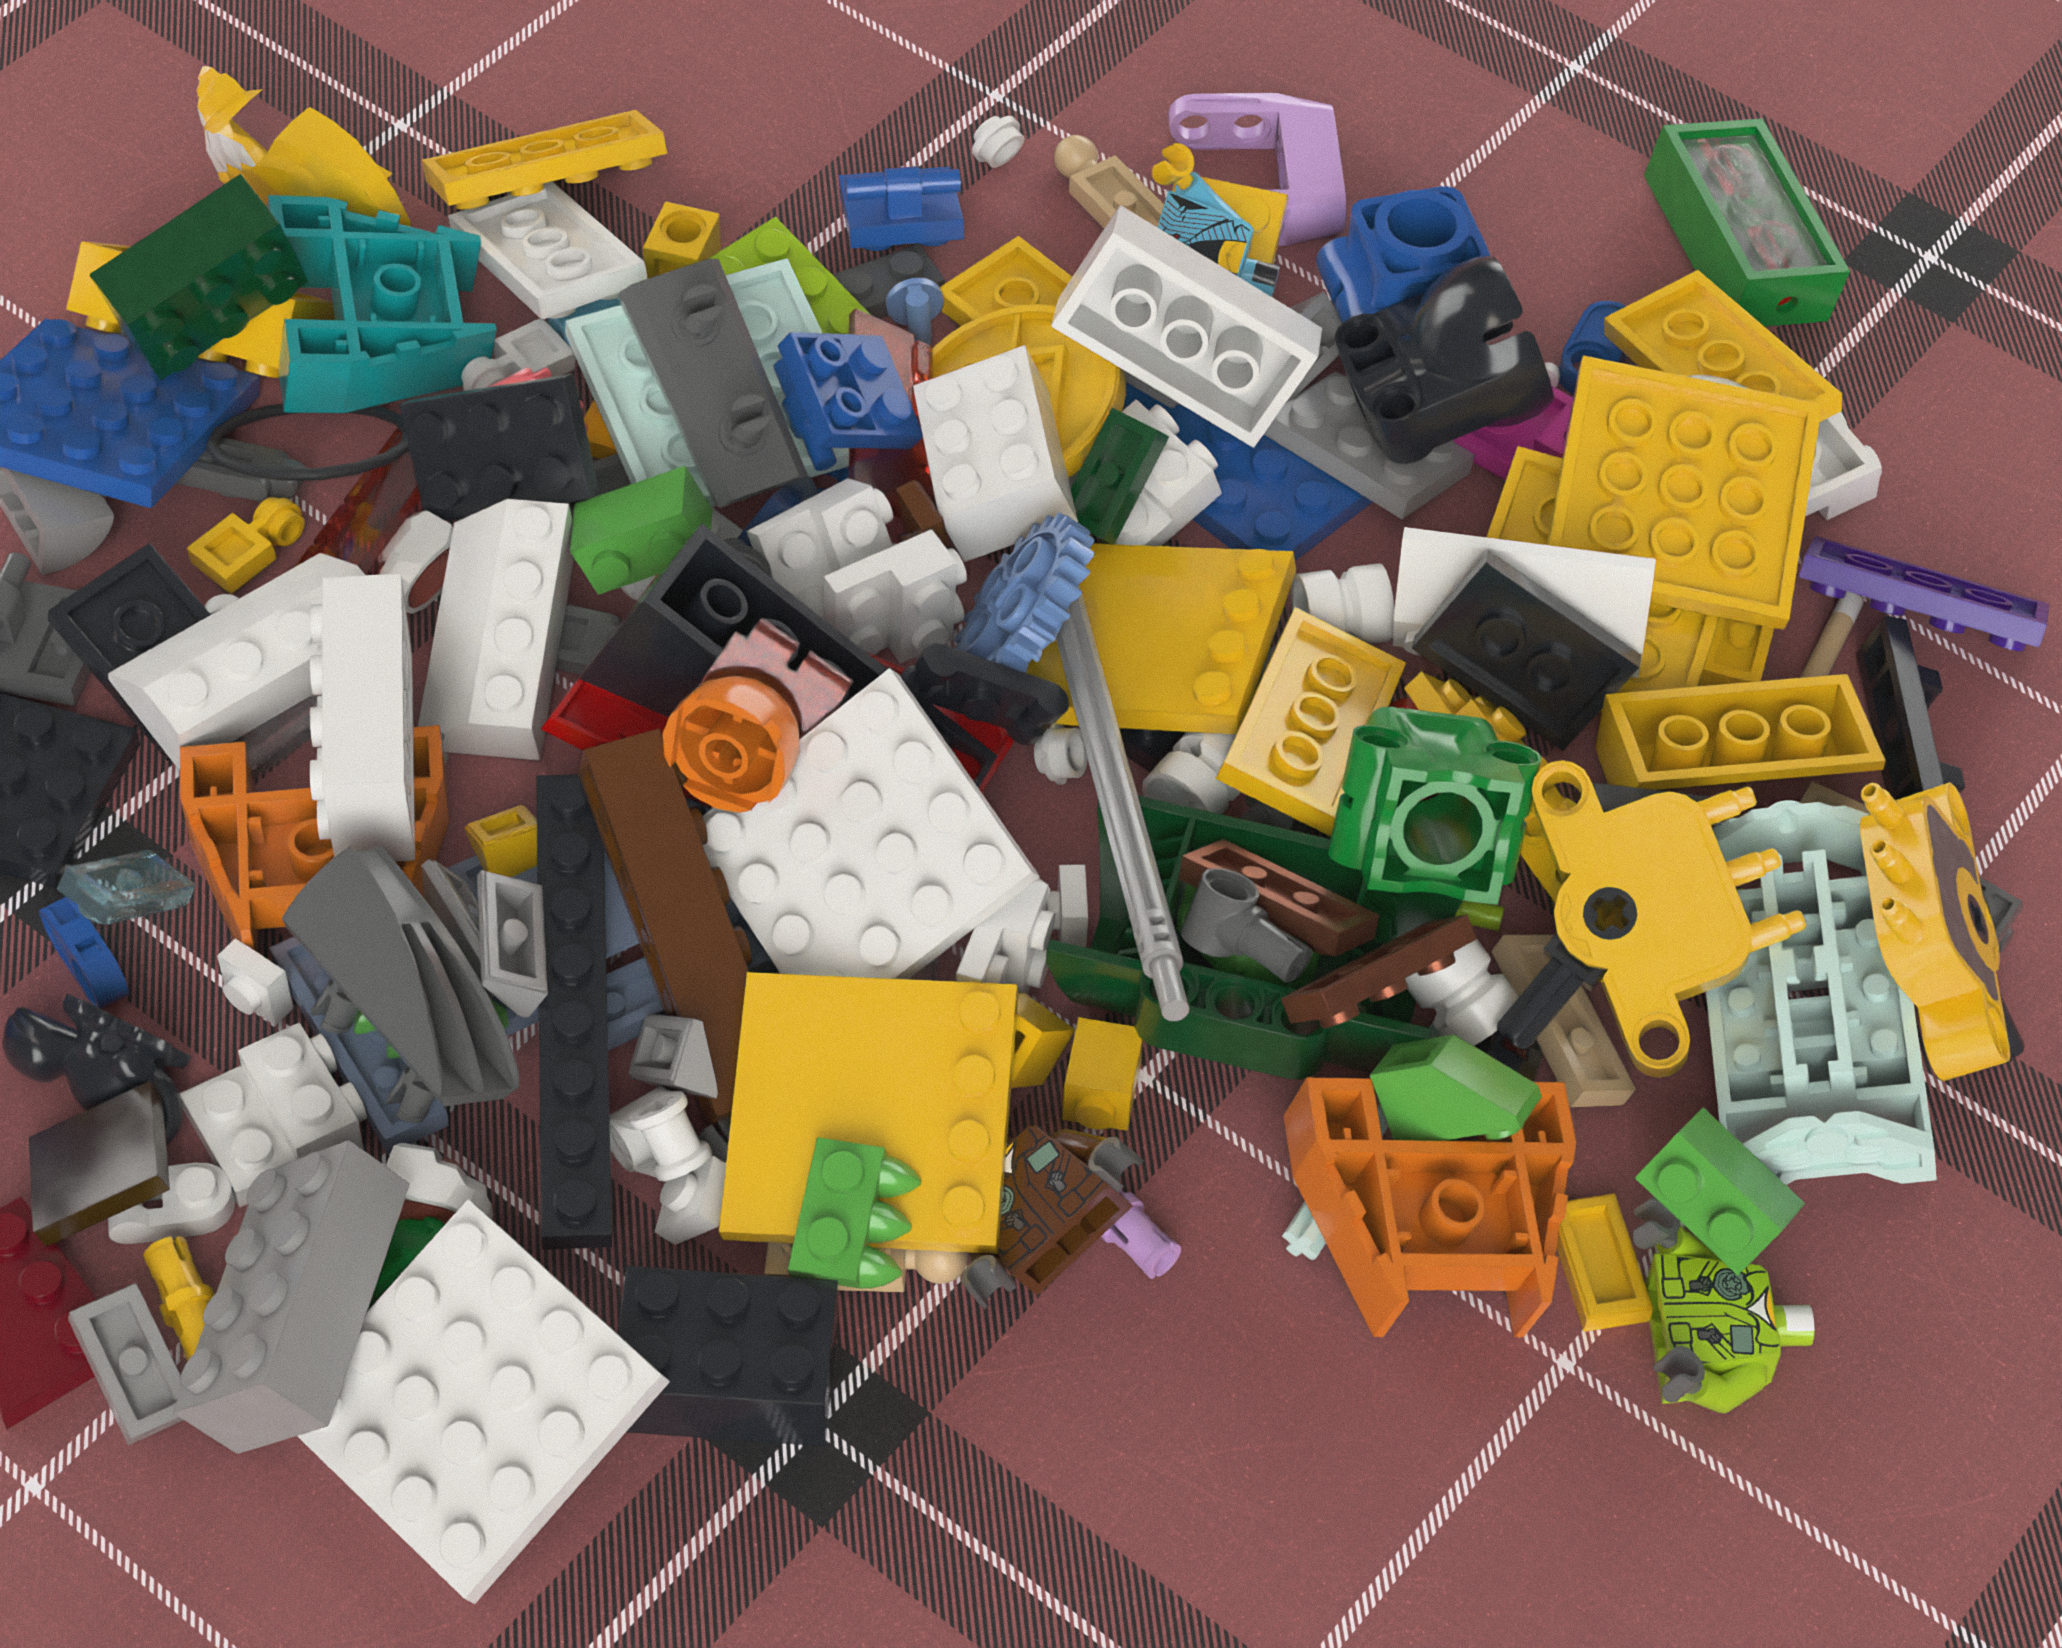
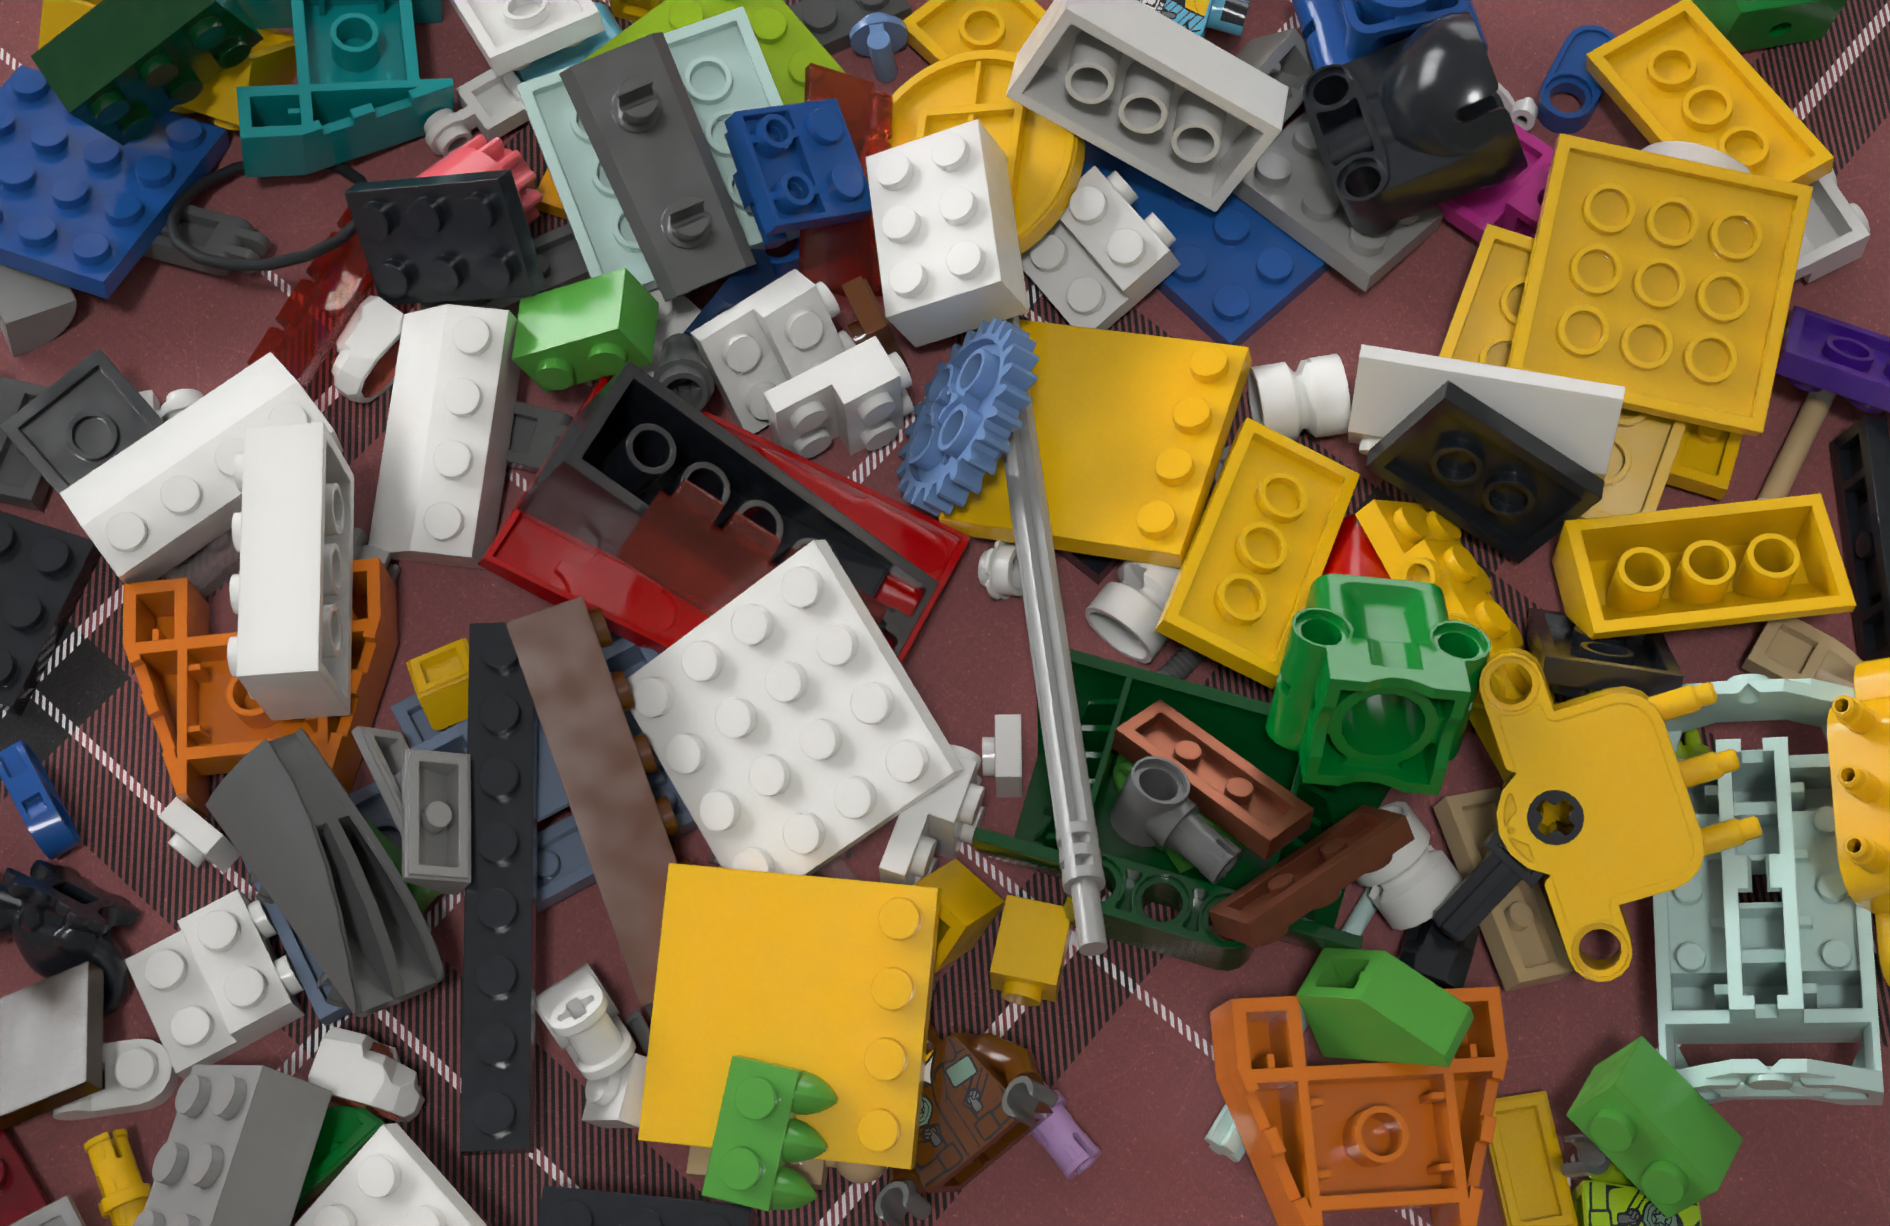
camera: 10 degrees right, 15 degrees up
(125, 887) = (74, 732): clear light blue plate -> none
(238, 551) = (198, 335): yellow plate -> none
(674, 1056) = (597, 945): light grey slope -> none
(733, 743) = (655, 616): orange cylinder -> none
(986, 691) = (922, 523): black plate -> none
(1115, 474) = (1069, 256): dark green plate -> none

